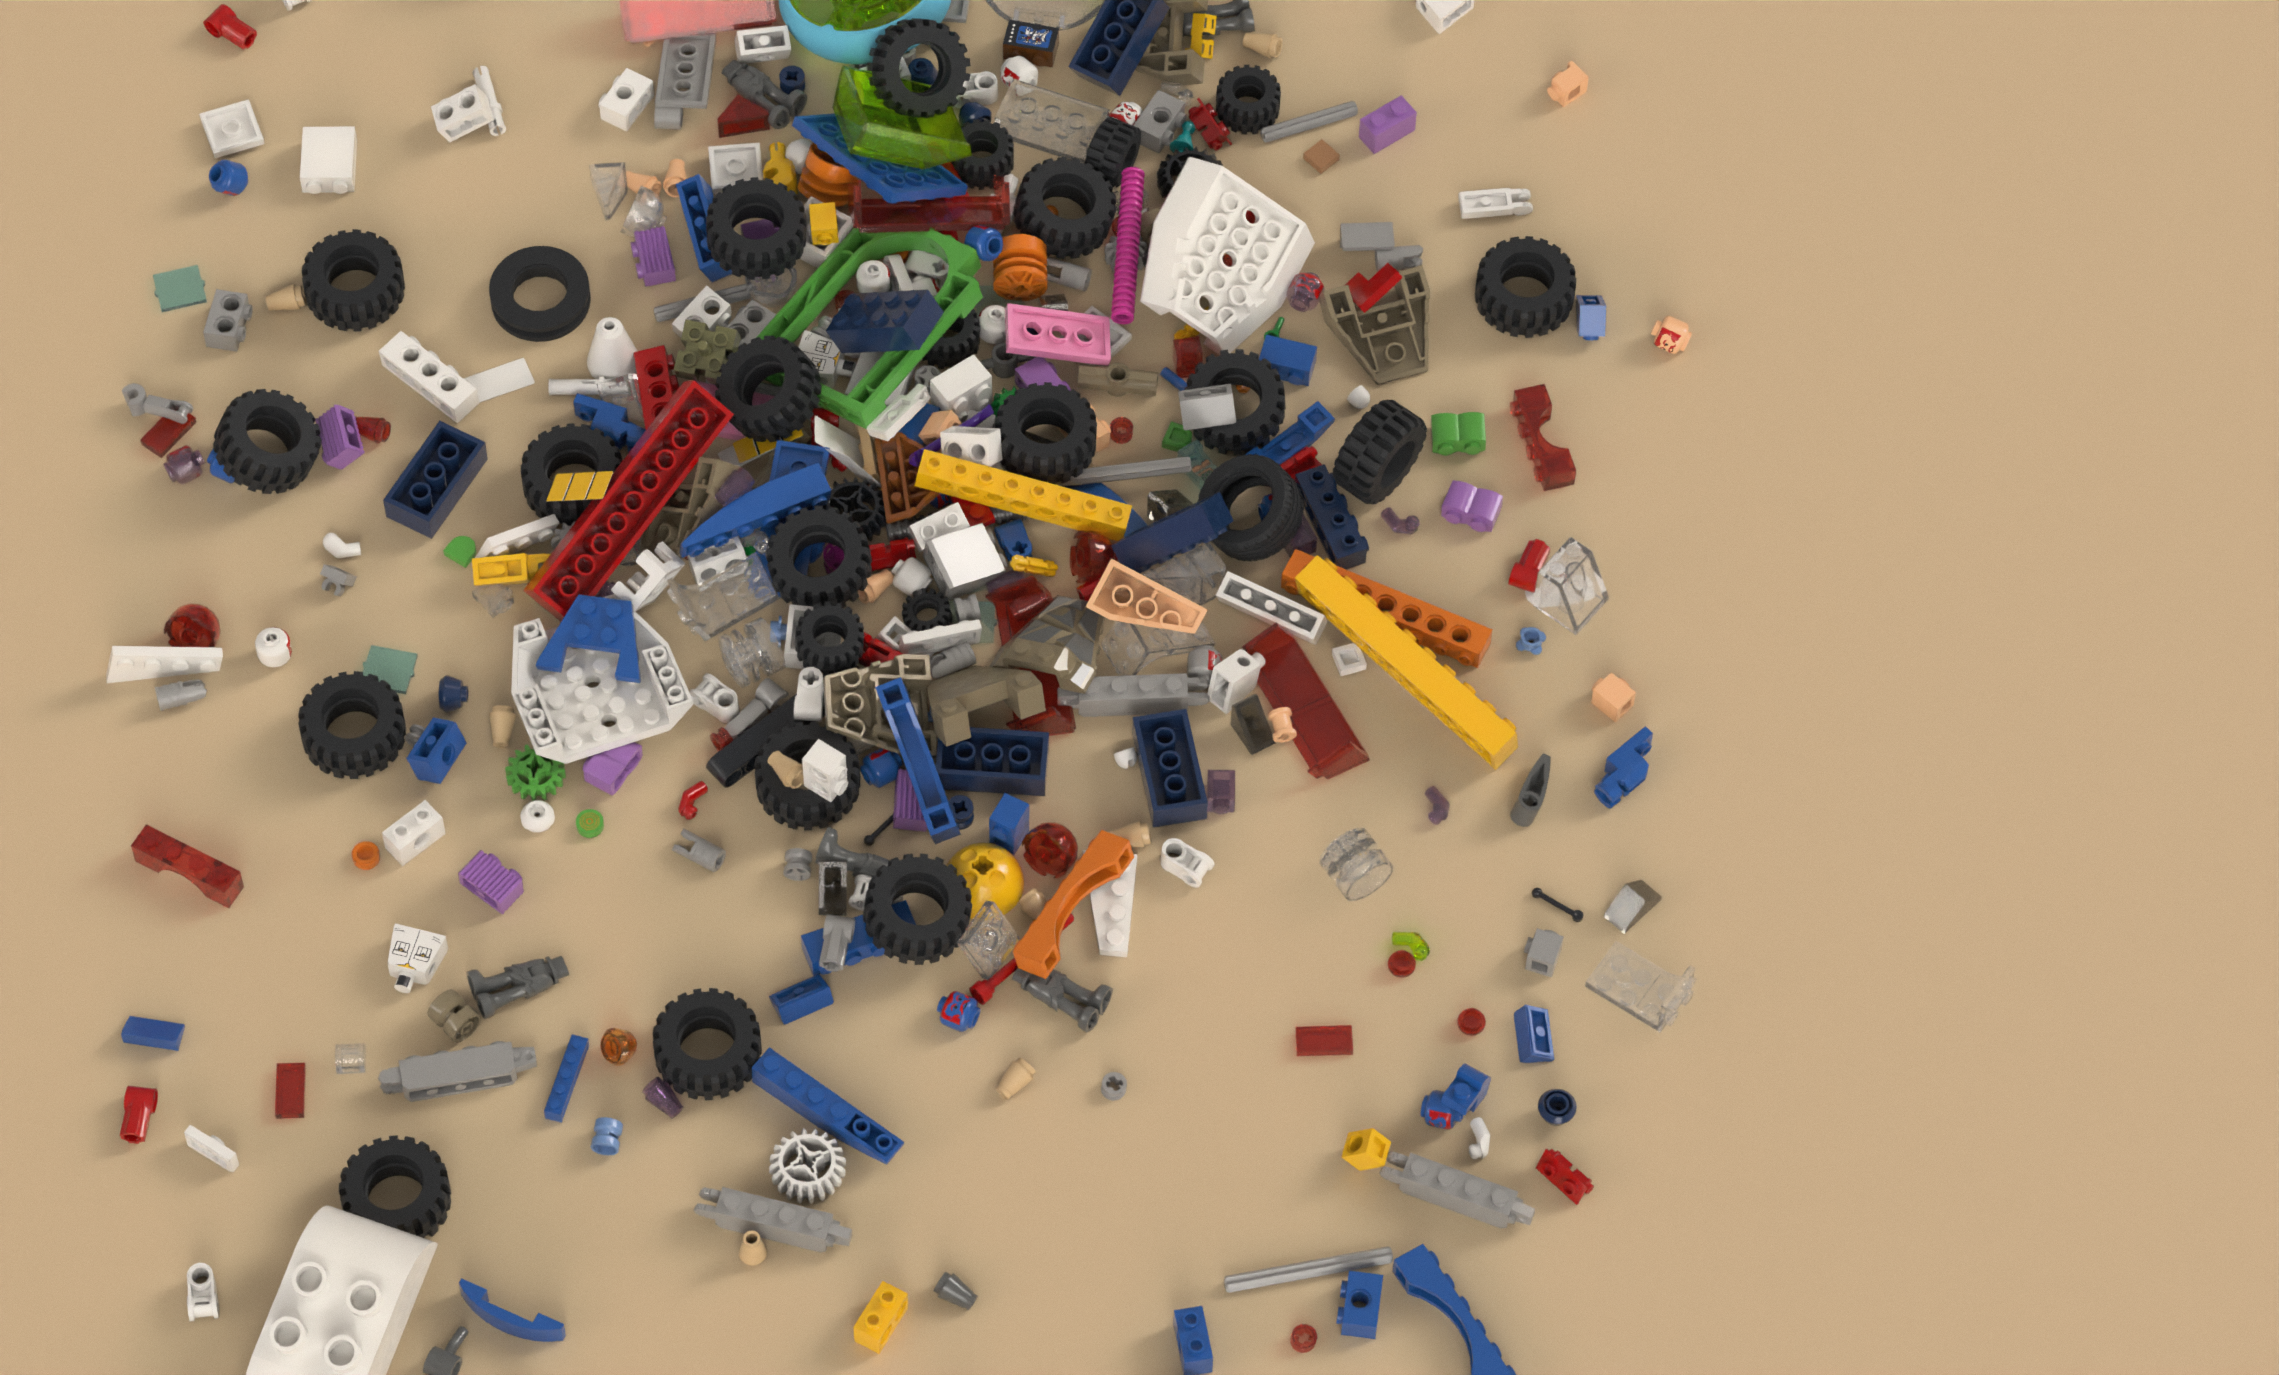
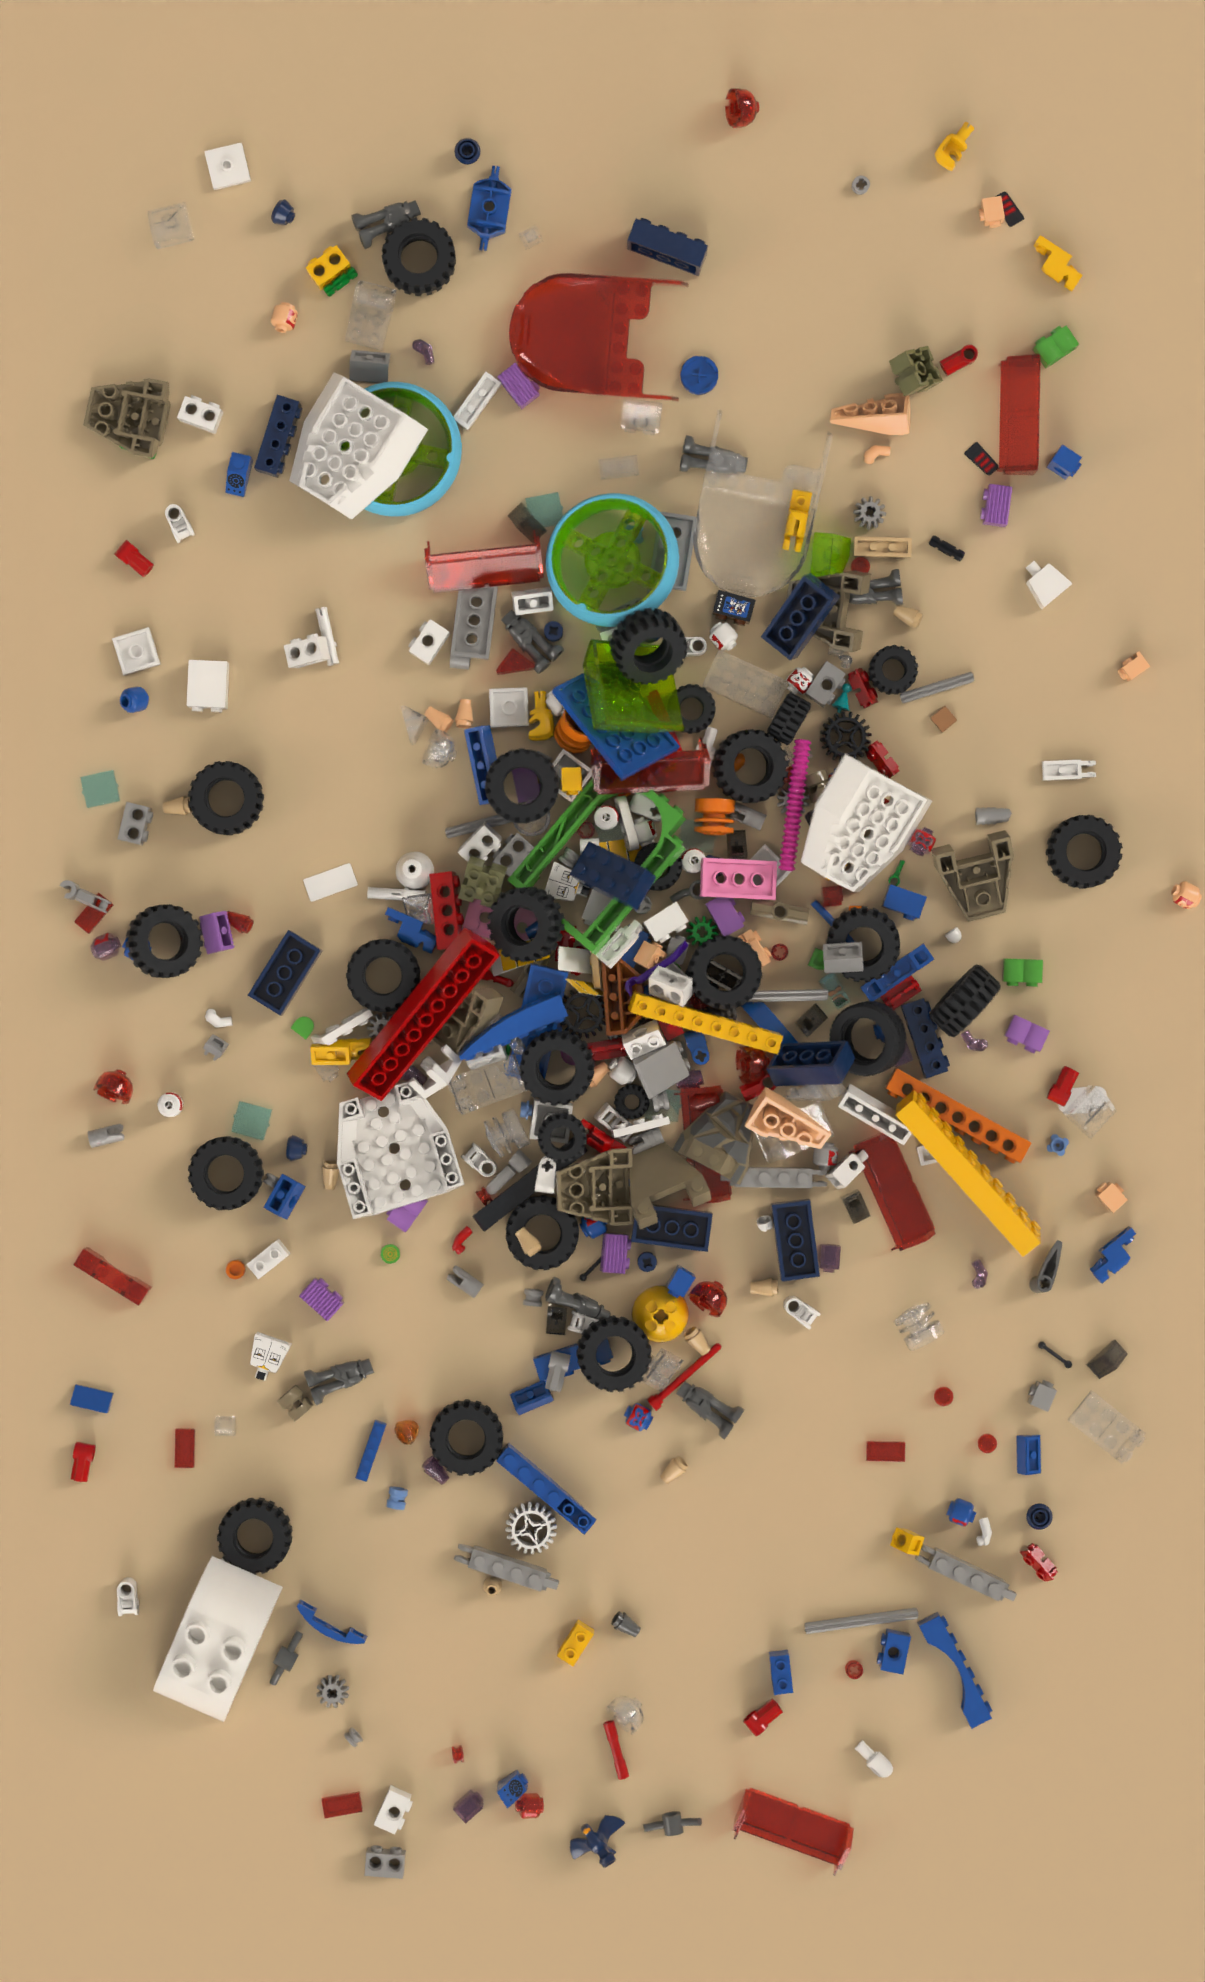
camera: 10 degrees right, 30 degrees up
(149, 662) = (86, 1115): white wing -> none
(212, 1148) = (132, 1491): white plate -> none
(453, 403) = (257, 863): white brick -> none
(457, 1071) = (299, 1443): light grey hinge -> none
(522, 771) = (352, 1223): bright green gear -> none
(539, 262) = (353, 786): black tyre -> none
(540, 823) = (351, 1240): white plate -> none
(579, 486) = (387, 1003): yellow sticker -> none
(597, 626) = (399, 1111): blue wing -> none
(654, 257) = (446, 785): medium lavender brick -> none
(735, 486) = (498, 1016): clear purple cone -> none
(825, 771) = (555, 1253): white brick -> none
(918, 760) = (628, 1265): blue arch -> none
(973, 111) = (687, 673): dark blue cone -> none
(986, 241) = (689, 803): blue head -> none
(1033, 565) = (710, 1068): yellow axle -> none
(1102, 862) = (744, 1314): orange arch -> none
(1113, 912) = (748, 1330): white wing -> none
(1118, 1079) = (736, 1481): light grey bush -> none
(1196, 32) = (859, 606): yellow piece -> none
(1282, 724) = (876, 1207): light nougat bush -> none
(1366, 236) = (971, 801): light grey panel -> none
(1368, 292) = (969, 852): red tile -> none
(1387, 124) = (995, 697): medium lavender brick -> none
(1414, 941) = (957, 1385): clear neon green arm -> none
(1466, 1090) = (980, 1502): blue brick -> none
(1552, 463) = (1087, 1002): clear red arch -> none
(1590, 316) = (1129, 874): slope -> none

